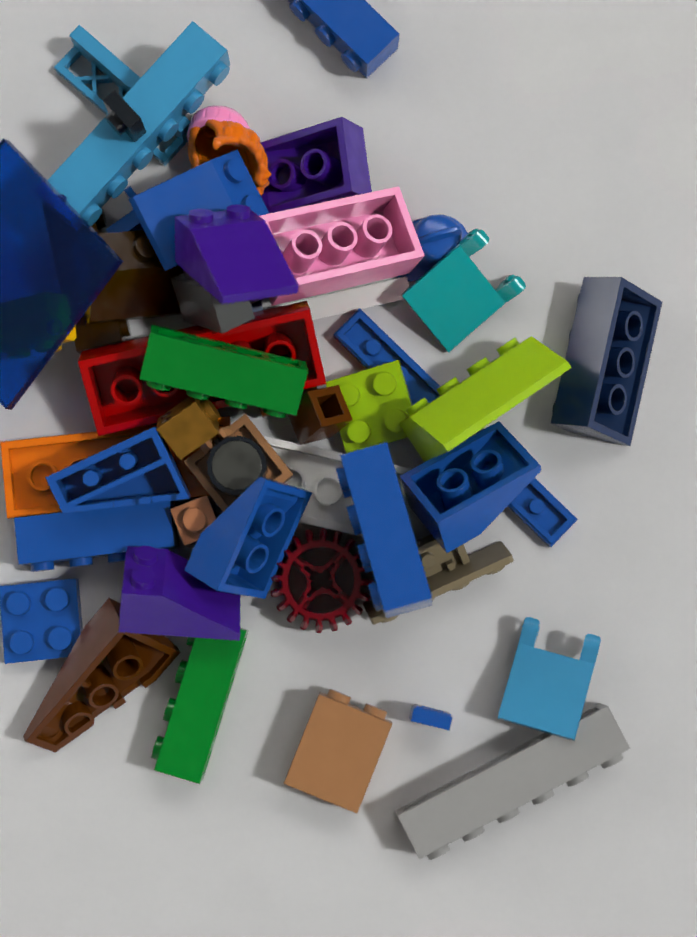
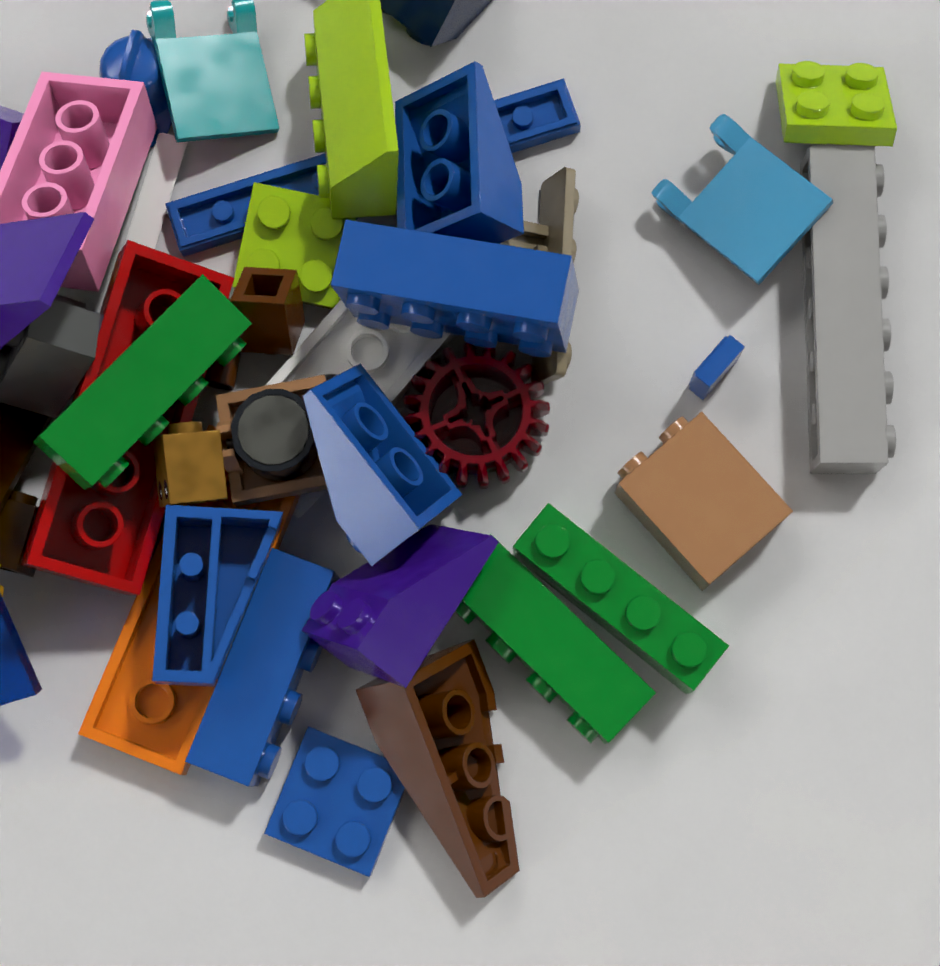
camera: 50 degrees left, 5 degrees down
(193, 519) = (314, 532): nougat brick -> none
(247, 731) = (619, 599): none -> green brick
(648, 708) = (835, 104): none -> lime plate

